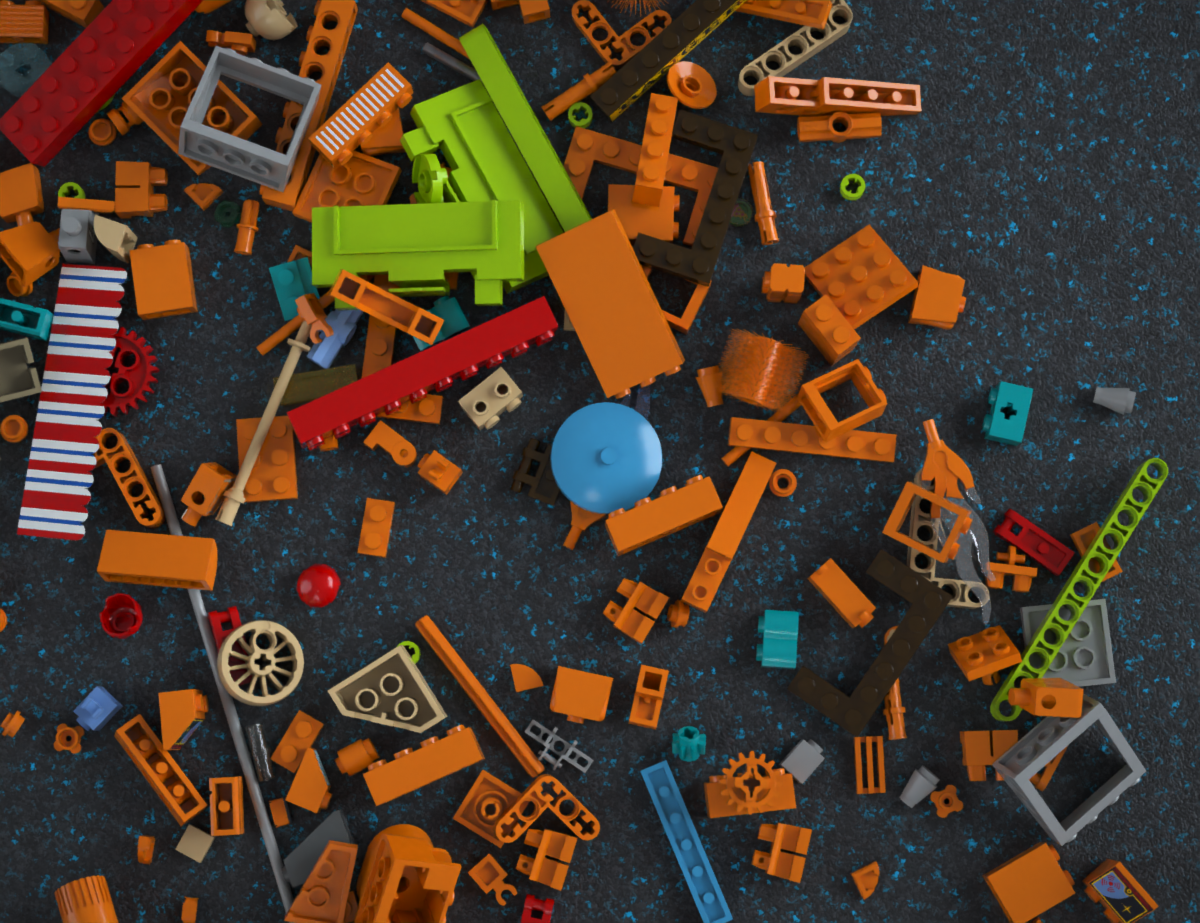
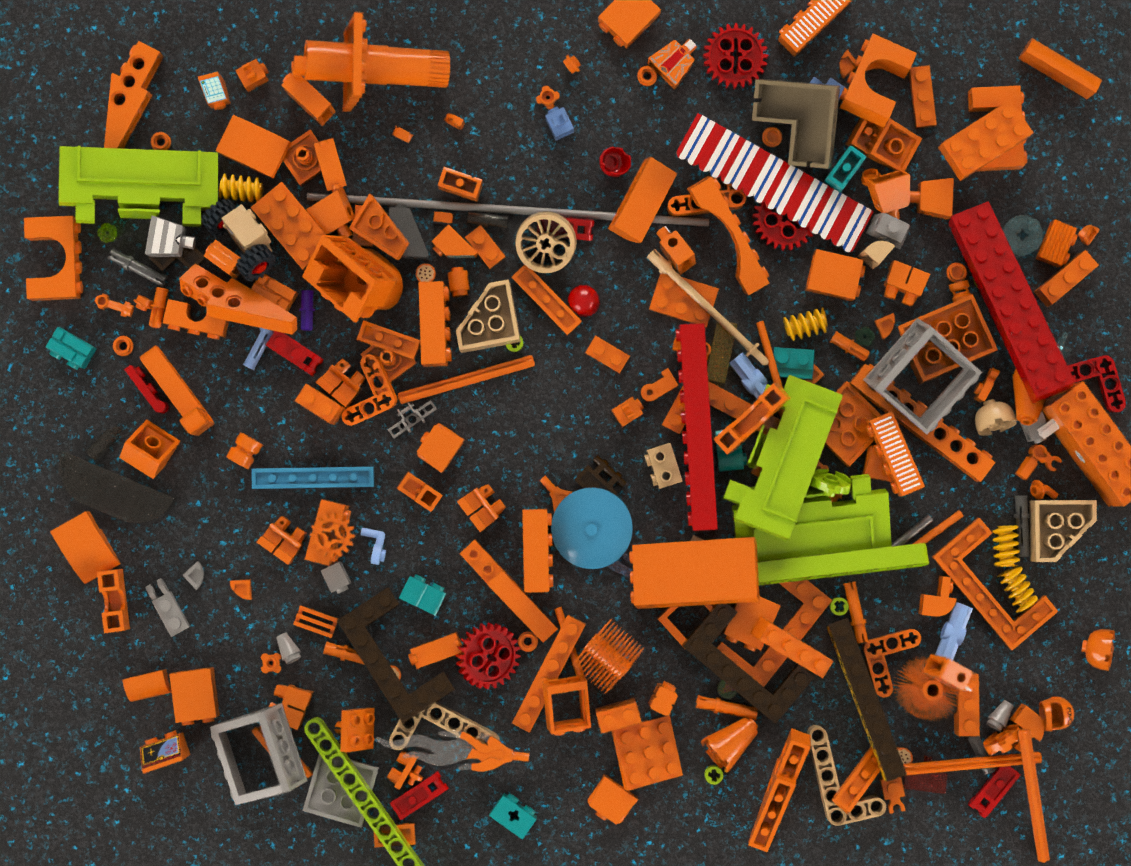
camera: 110 degrees right, 5 degrees up
(65, 190) = (914, 238): lime bush -> none
(86, 204) = (907, 242): orange tile -> none
(160, 770) = (501, 149): orange brick -> none
(181, 715) = (532, 176): orange slope -> none
(195, 843) = (445, 154): tan tile -> none
(199, 389) = (748, 270): none -> orange arch
(239, 292) = (805, 324): none -> yellow piece
(312, 312) = (770, 367): orange plate -> none
(335, 633) = (546, 299): none -> orange plate
(361, 805) = (425, 273): none -> tan tile
(467, 816) = (388, 340): none -> orange plate
(490, 876) = (345, 340): orange plate -> none
(525, 677) = (466, 414): orange tile -> none
(587, 872) = (320, 404): none -> orange brick
(678, 614) = (467, 534): orange plate -> none
(688, 743) = (378, 506): teal gear -> none
(691, 85) = (829, 692): orange dish -> none
(705, 380) = (618, 617): orange cone -> none
(749, 718) = (378, 552): none -> light blue plate
(805, 180) = (730, 742): none -> orange cone
(818, 544) = (474, 647): none -> red gear
(857, 127) = (755, 796): orange piece -> none
(901, 510) = (474, 712): orange window -> none
(1048, 697) = (308, 758): orange torso -> none

